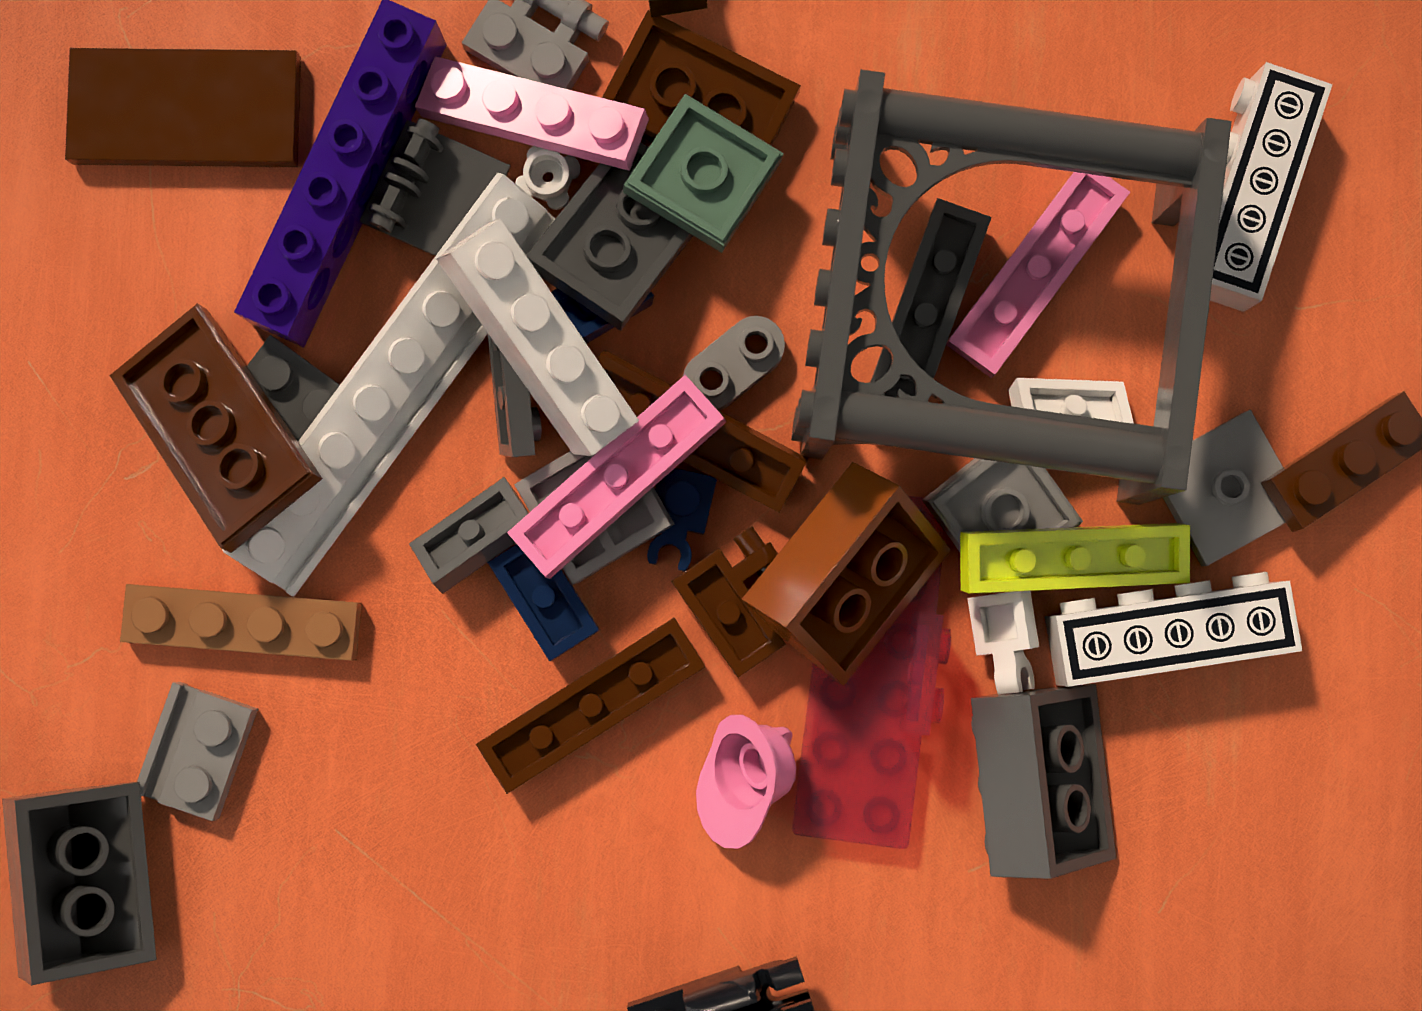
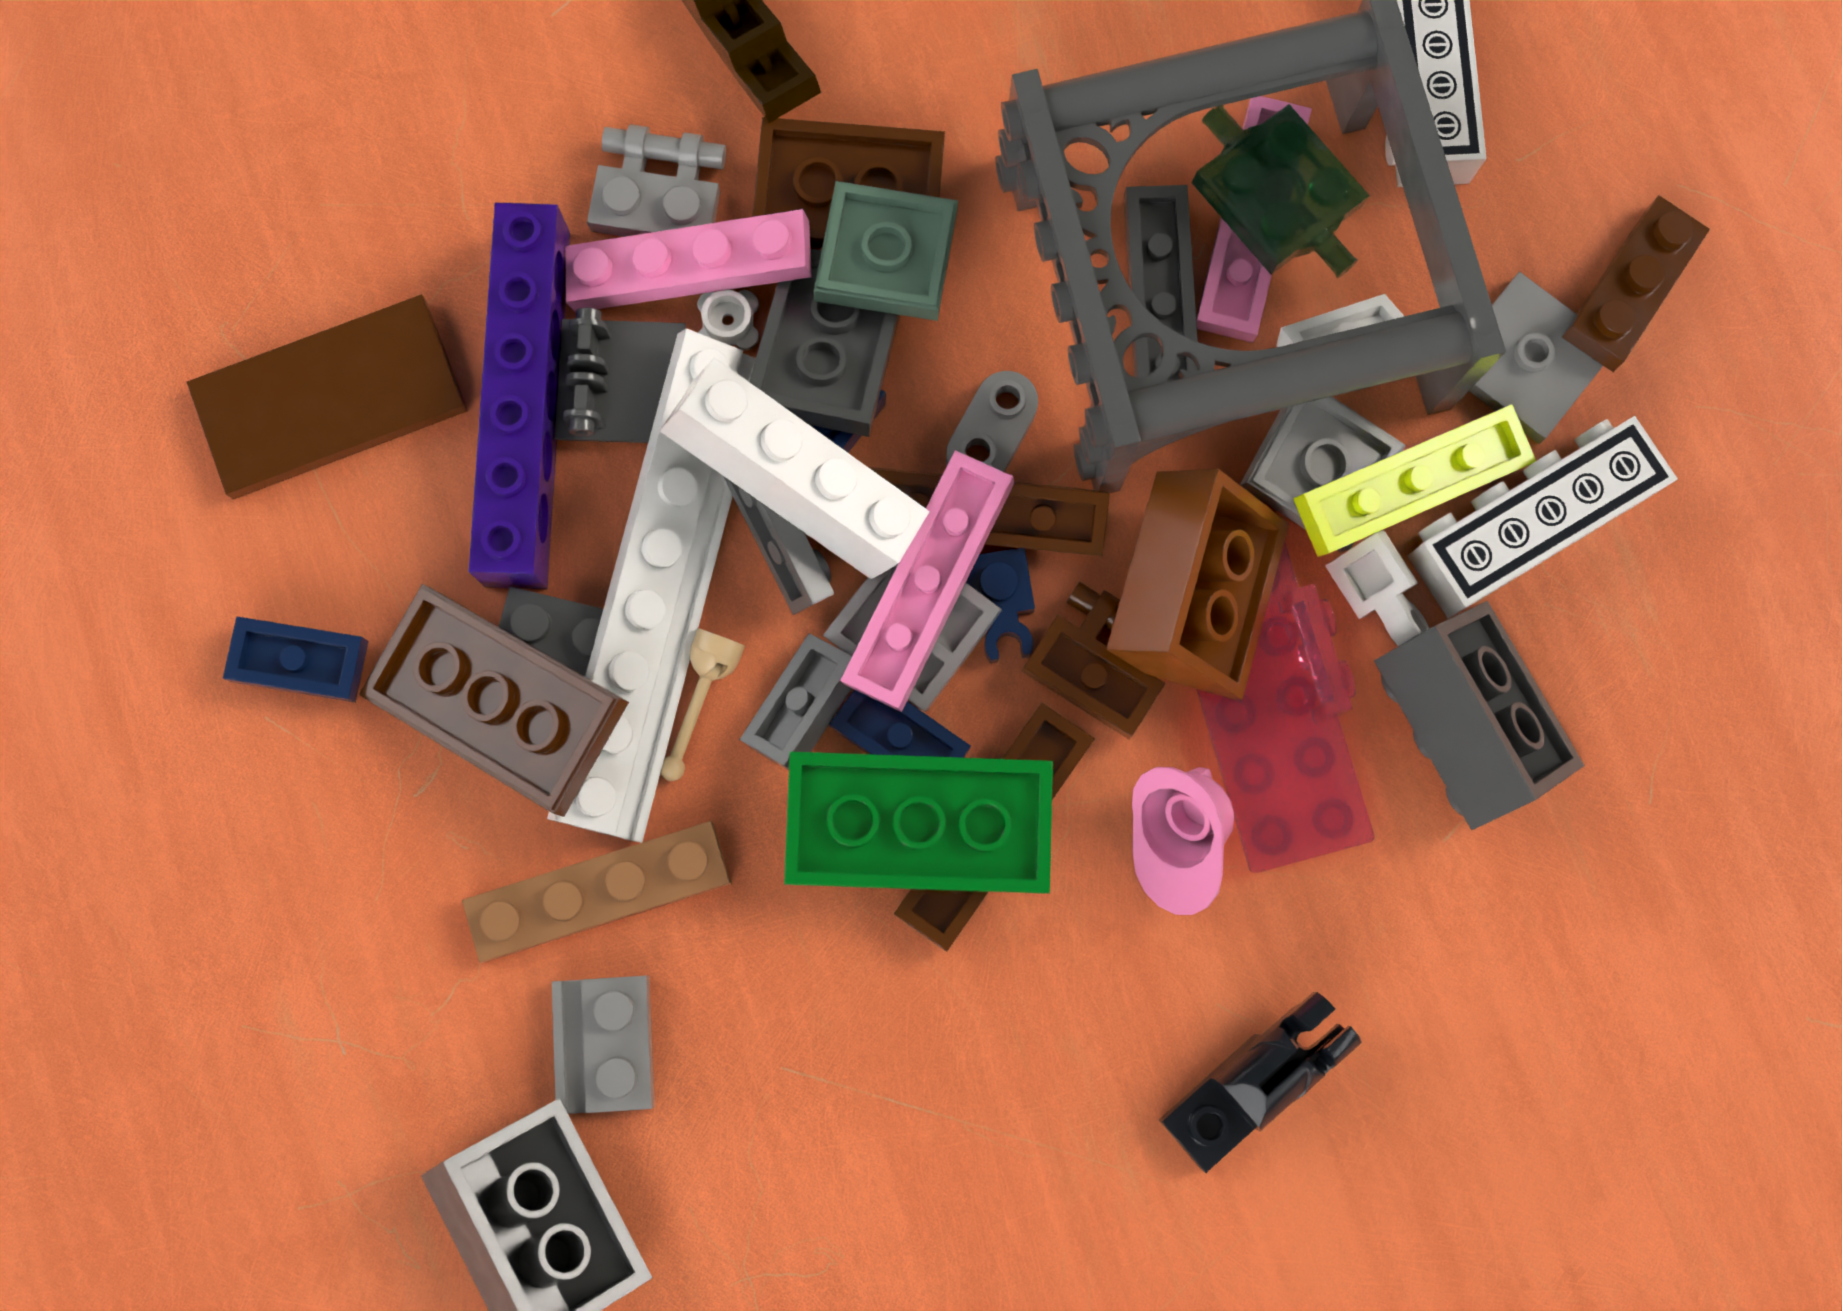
camera: 25 degrees left, 5 degrees down
(68, 325) = (295, 659): none -> dark blue plate
(415, 465) = (712, 659): none -> tan hinge
(523, 679) = (919, 822): none -> green plate
(1069, 255) = (1280, 189): none -> clear green plate

